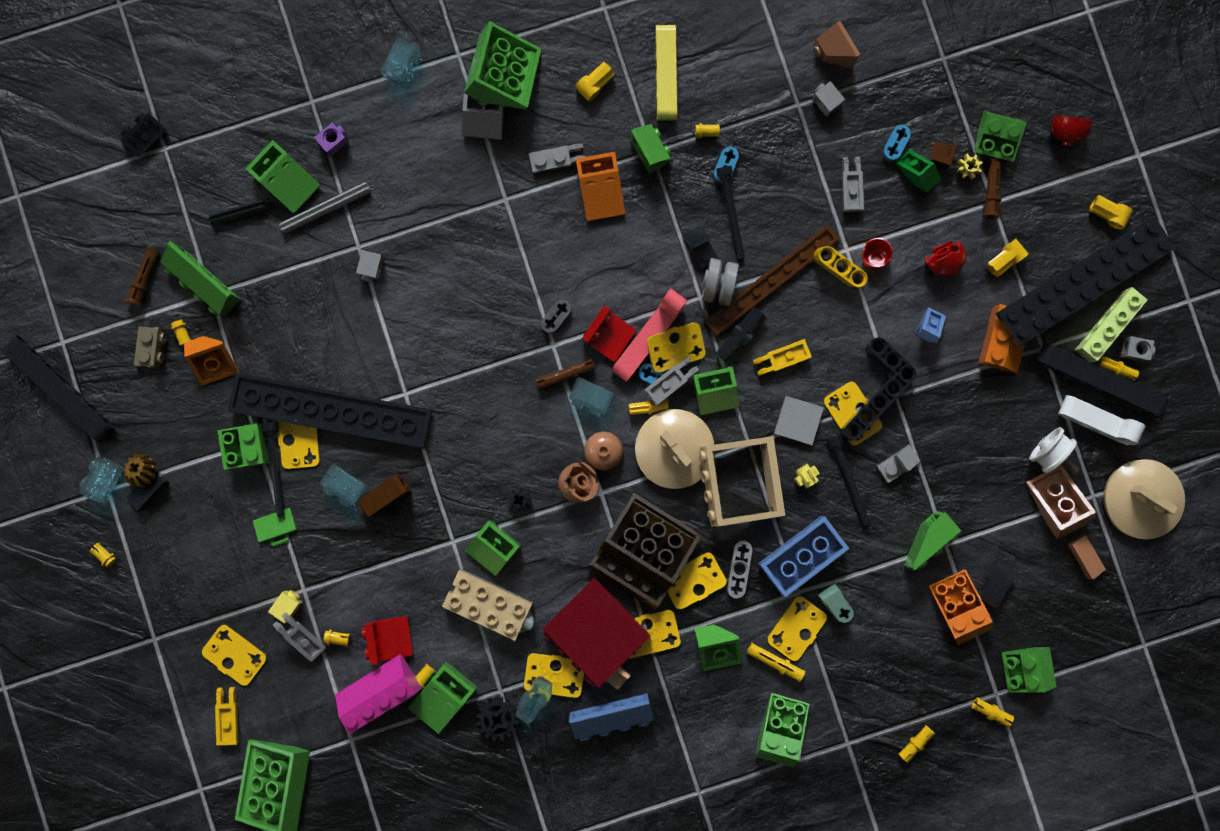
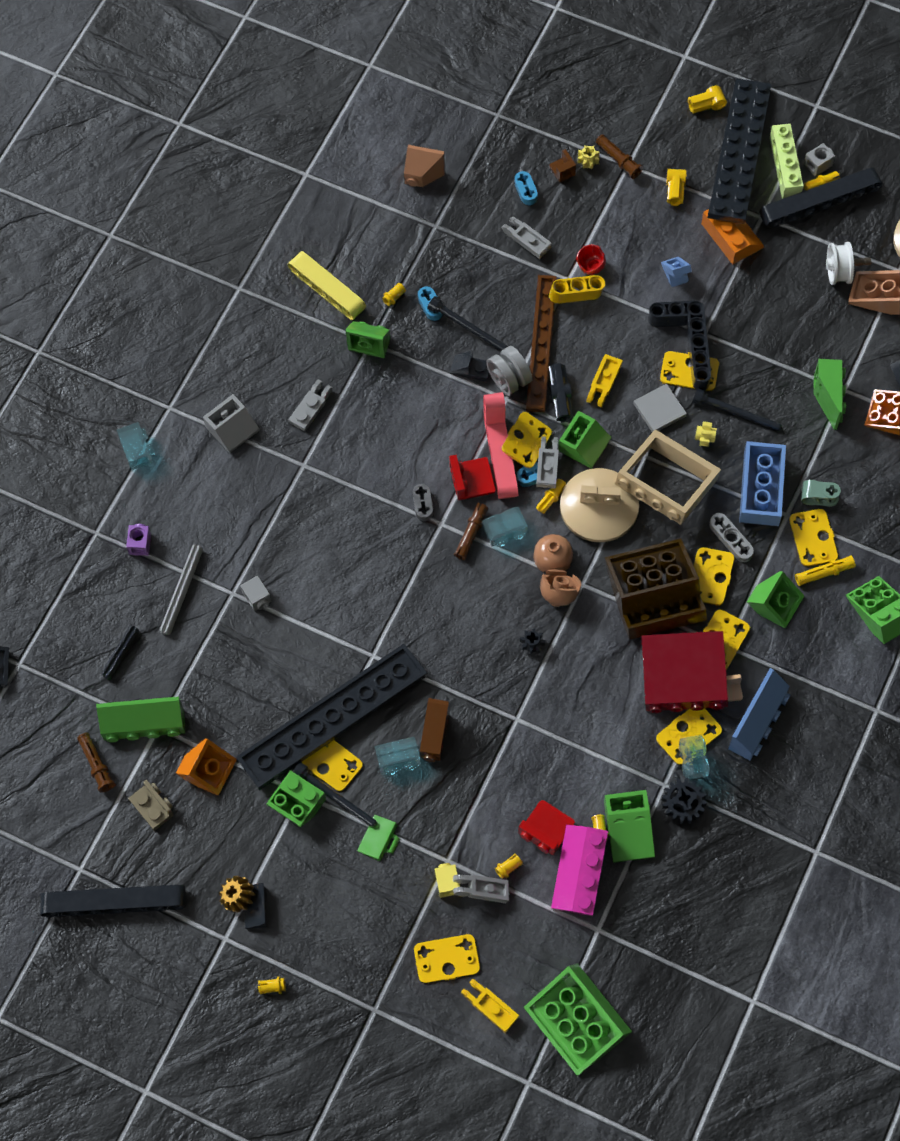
camera: 40 degrees left, 20 degrees down
(101, 479) = (213, 931): clear light blue brick -> none
(180, 331) = (164, 772): yellow pin -> none
(283, 176) = (129, 595): bright green slope -> none
(489, 605) = (590, 729): tan piece -> none
(492, 547) = (549, 689): bright green slope -> none
(502, 68) = (212, 380): bright green slope -> none
(591, 85) = (284, 334): yellow piece -> none
(600, 186) = (360, 391): orange slope -> none
(828, 98) = (451, 202): light grey brick -> none
(898, 464) = (755, 372): light grey slope -> none
(918, 170) = (559, 188): green slope -> none
(947, 259) = (639, 220): red cylinder -> none
(999, 136) = (585, 121): bright green slope -> none
(1070, 129) = (625, 77): red cylinder -> none
(1121, 430) = (851, 220): white beam -> none

